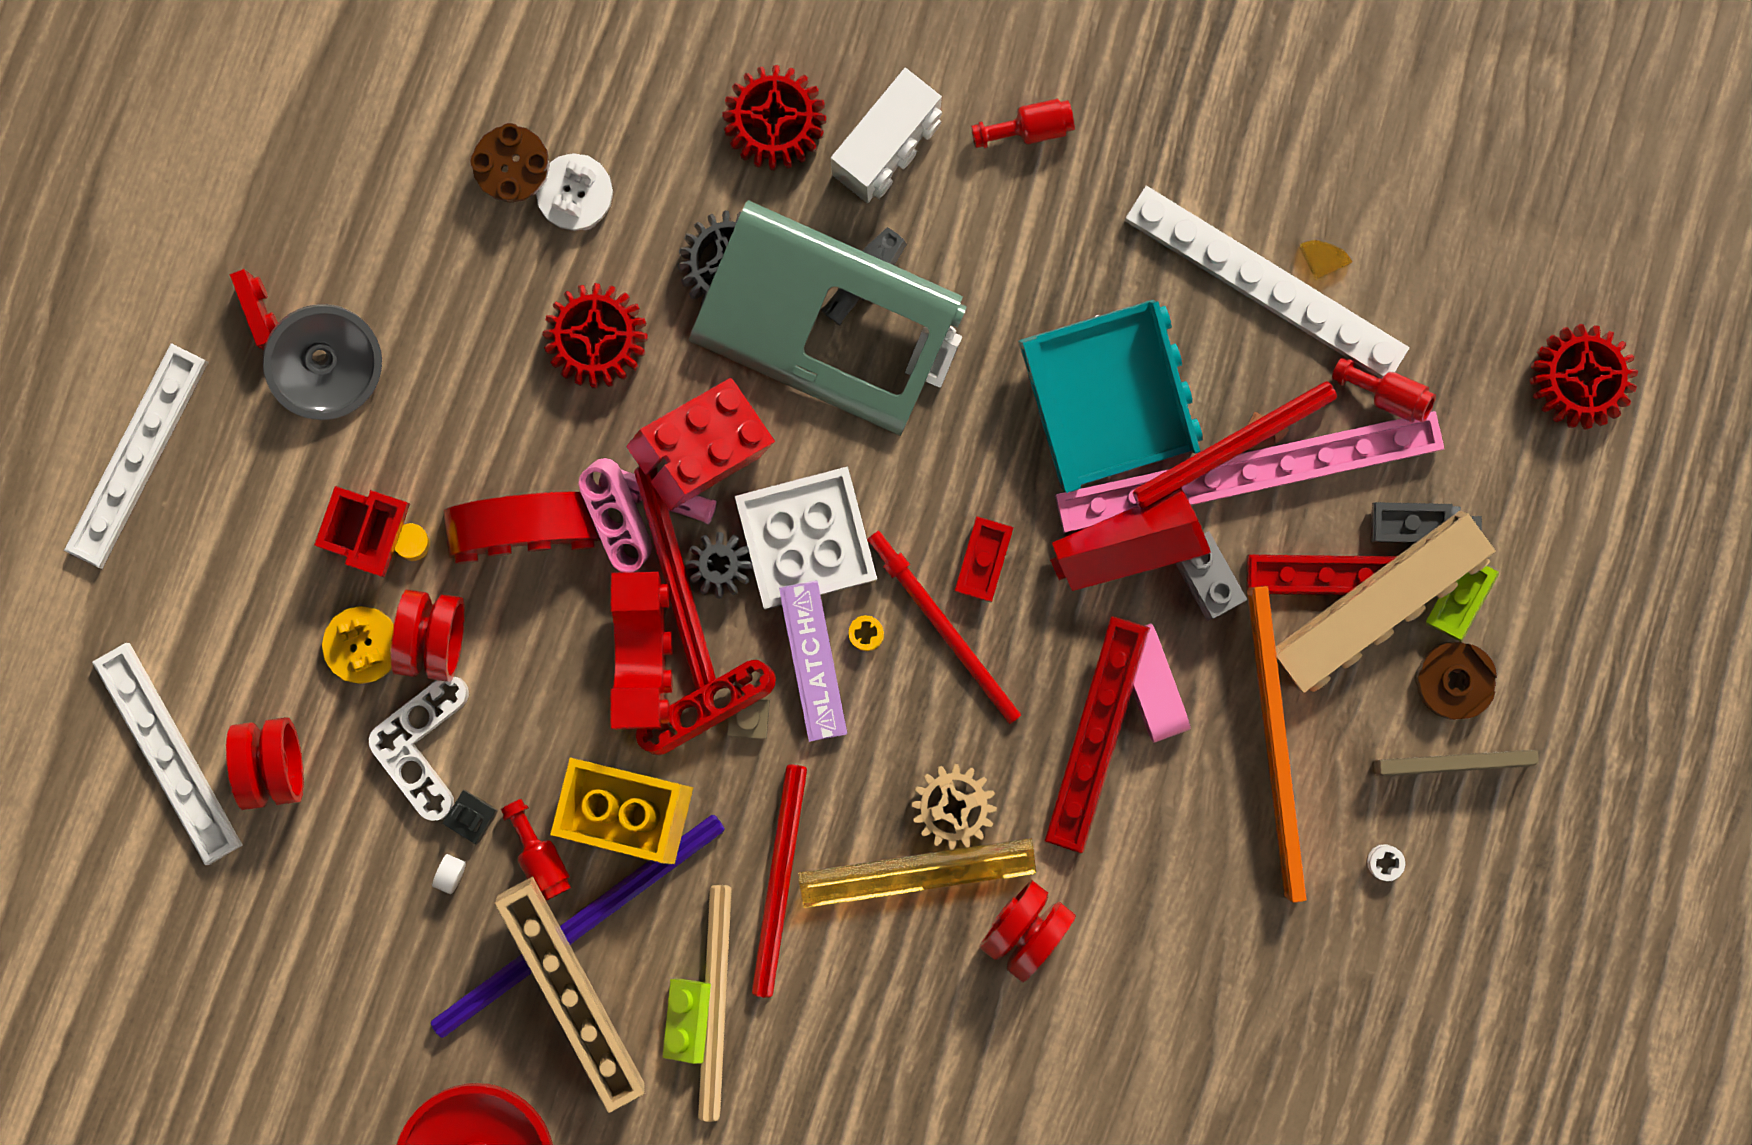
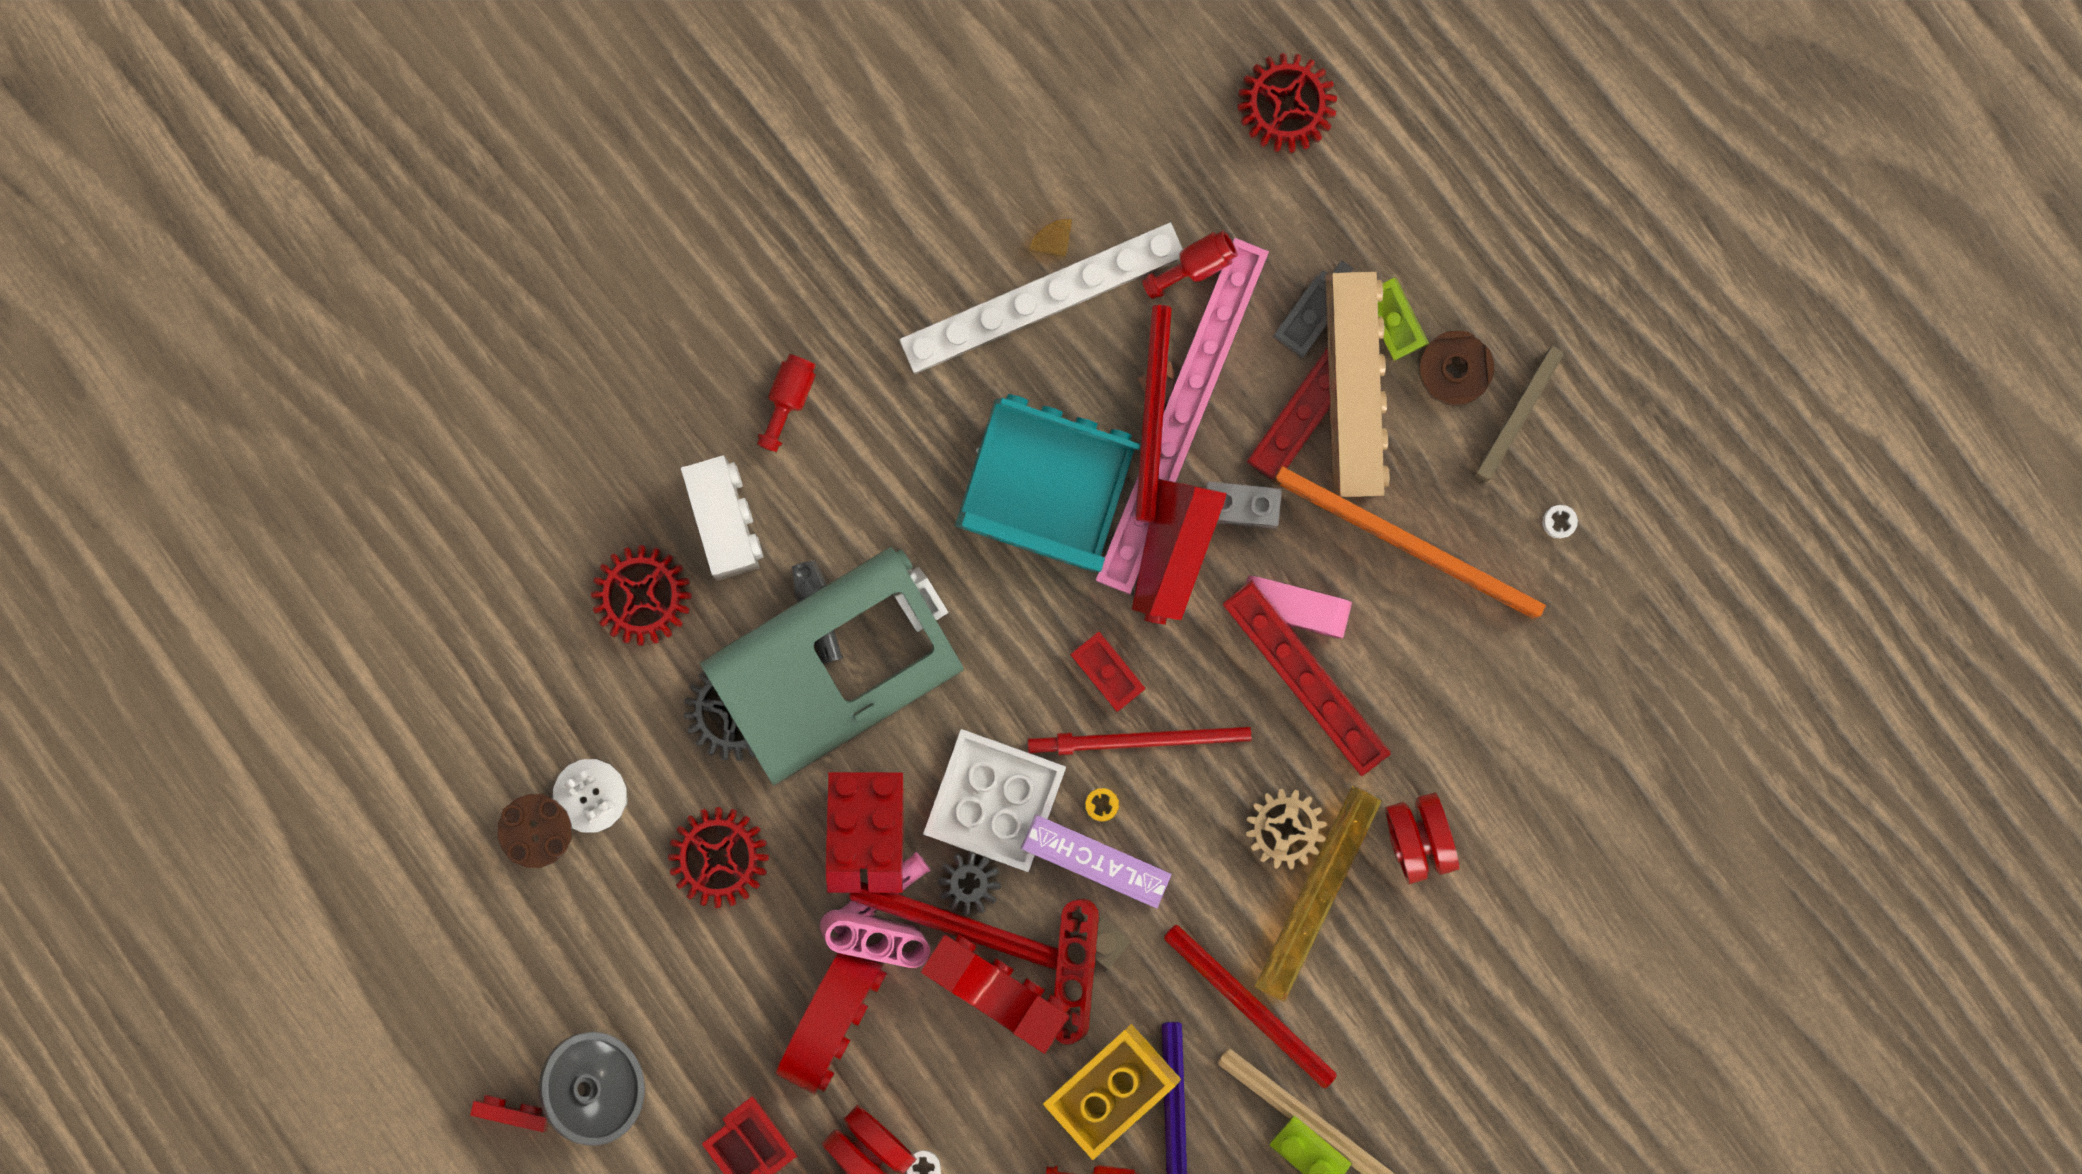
camera: 55 degrees left, 0 degrees up
(412, 542) = (784, 1115): yellow piece -> none

